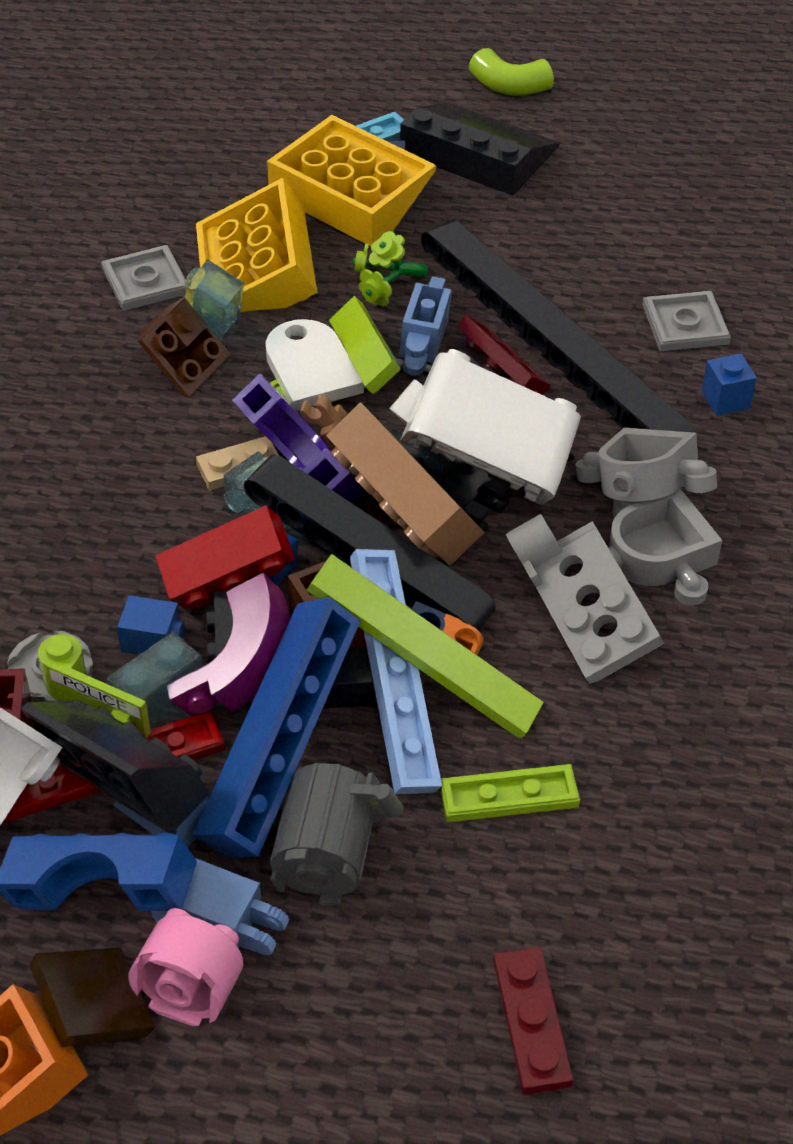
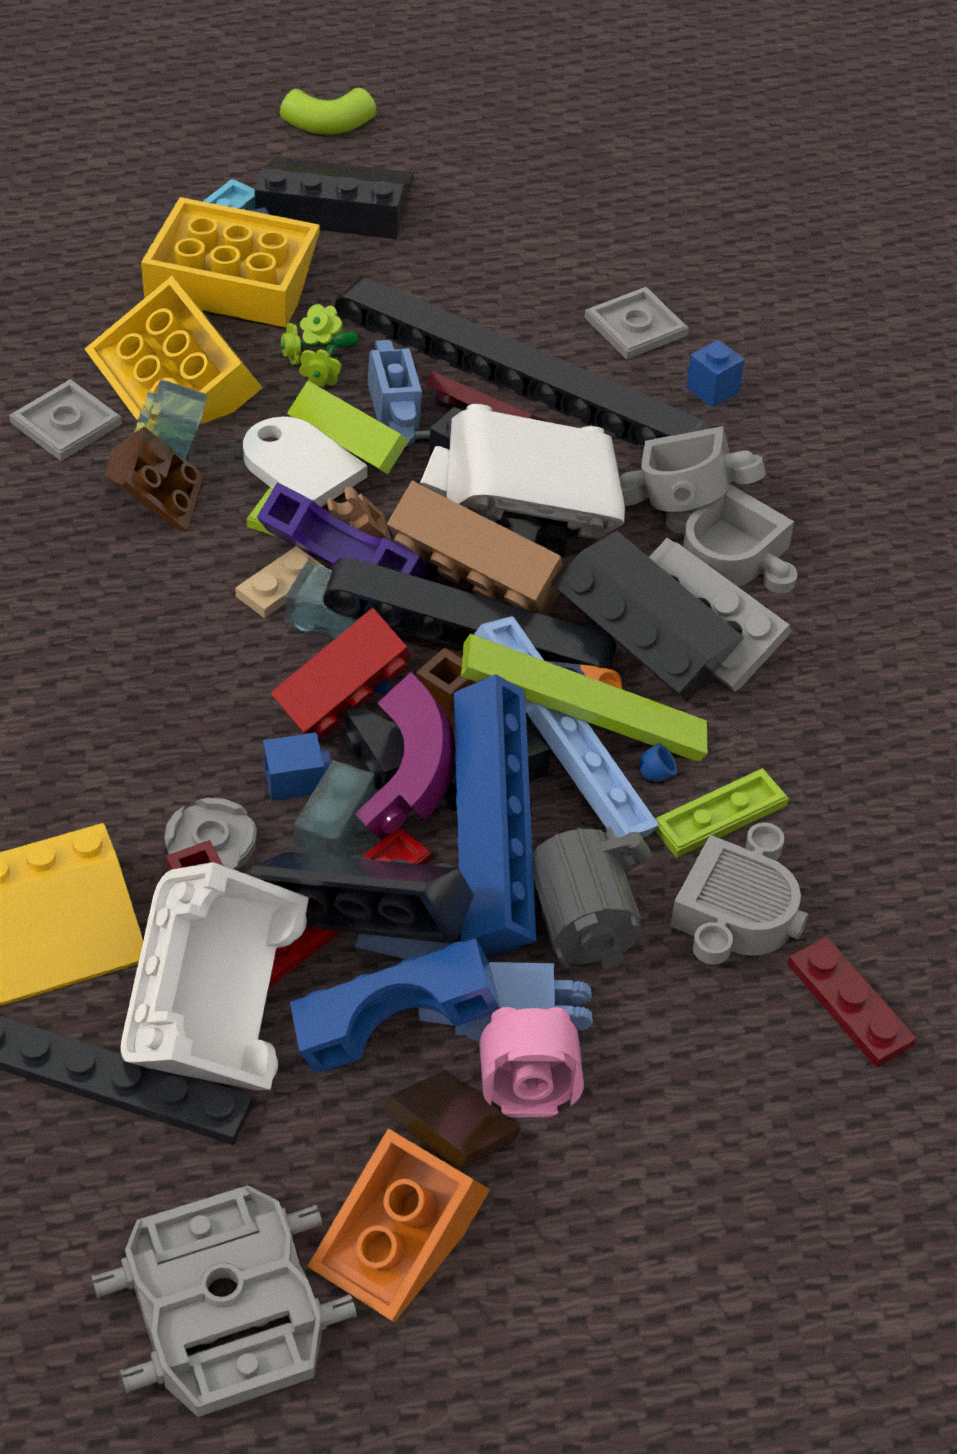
camera: 25 degrees left, 0 degrees up
(67, 680) = (248, 841): lime door -> none
(473, 881) = (740, 898): none -> light grey piece
(474, 722) = (657, 764): none -> blue hinge
(530, 586) = (648, 613): none -> black slope

